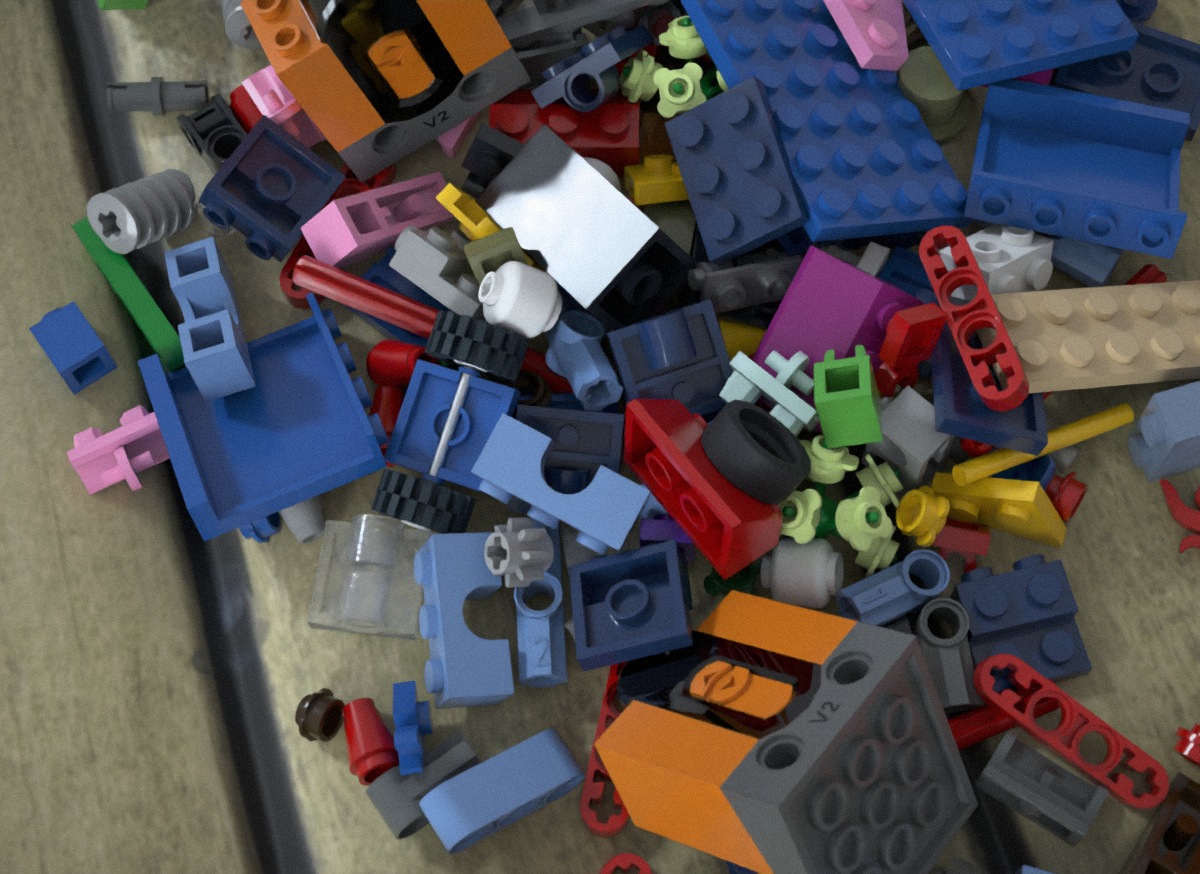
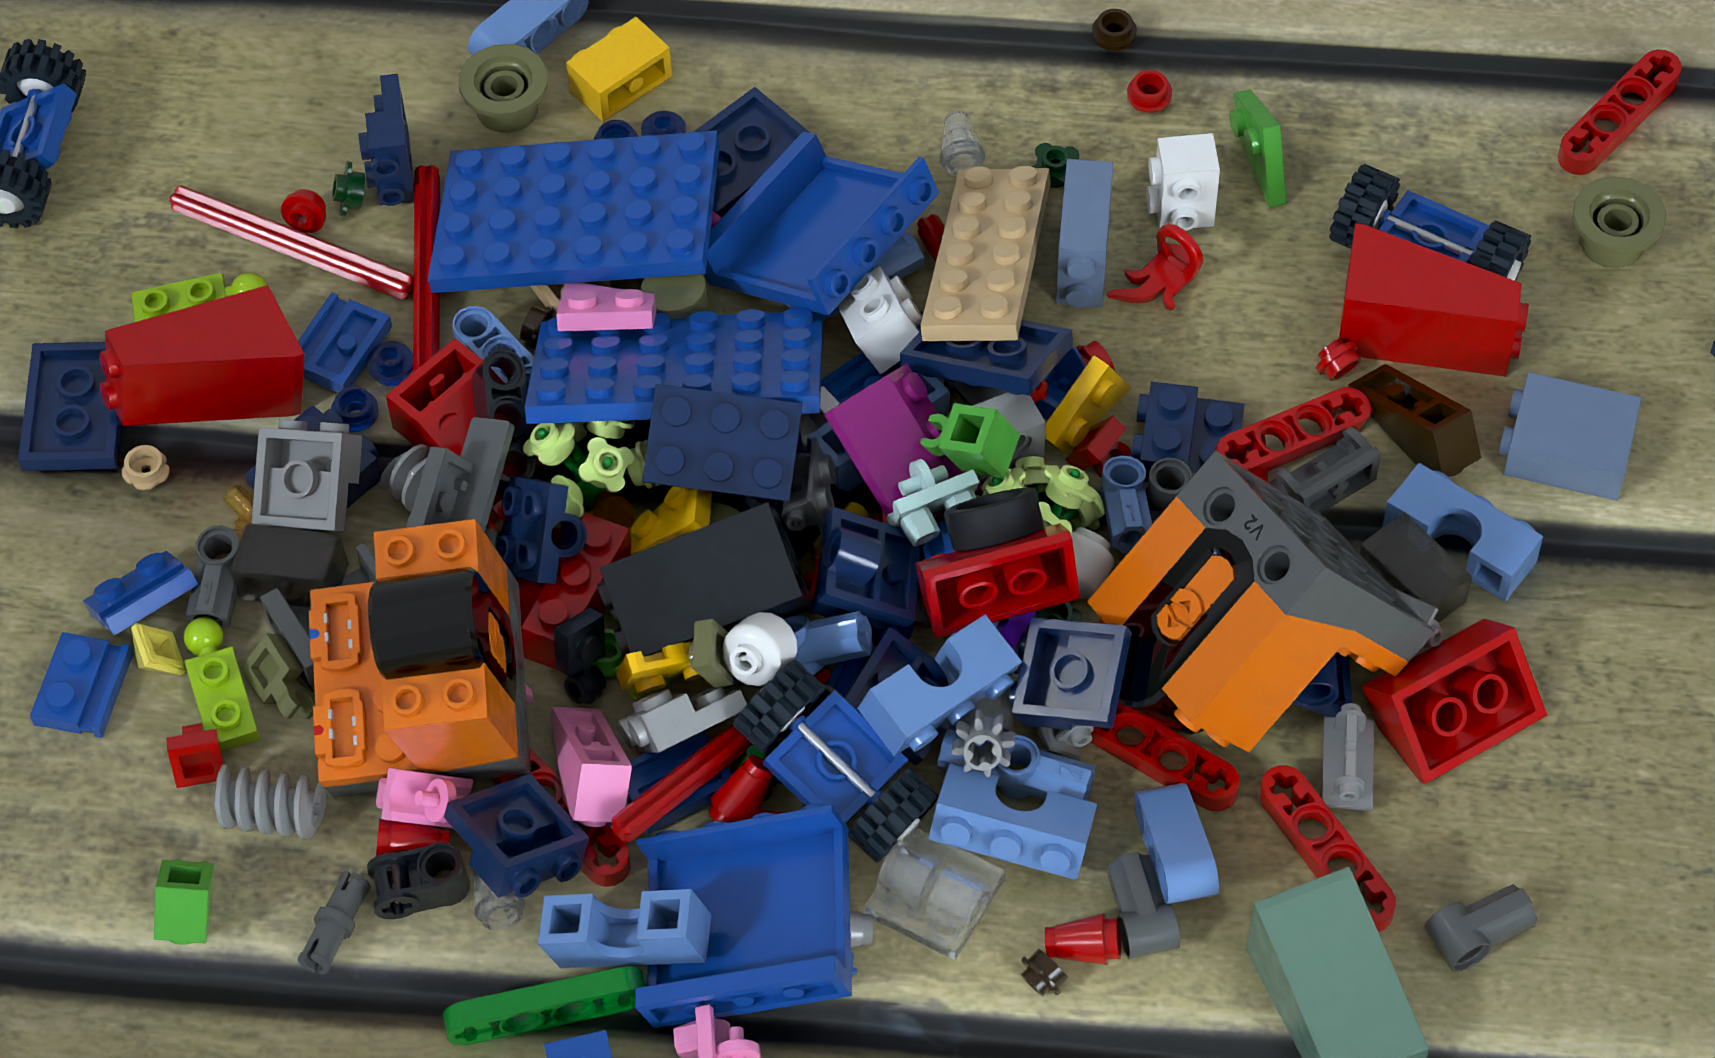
camera: 70 degrees left, 10 degrees down
(143, 211) = (478, 953): light grey piece -> none
(411, 722) = (1088, 895): blue plate -> none
(908, 341) = (938, 378): red plate -> none
(922, 515) = (1080, 438): yellow plate -> none
(975, 315) = (943, 337): red beam -> none
(1057, 439) = (1056, 378): yellow bar -> none

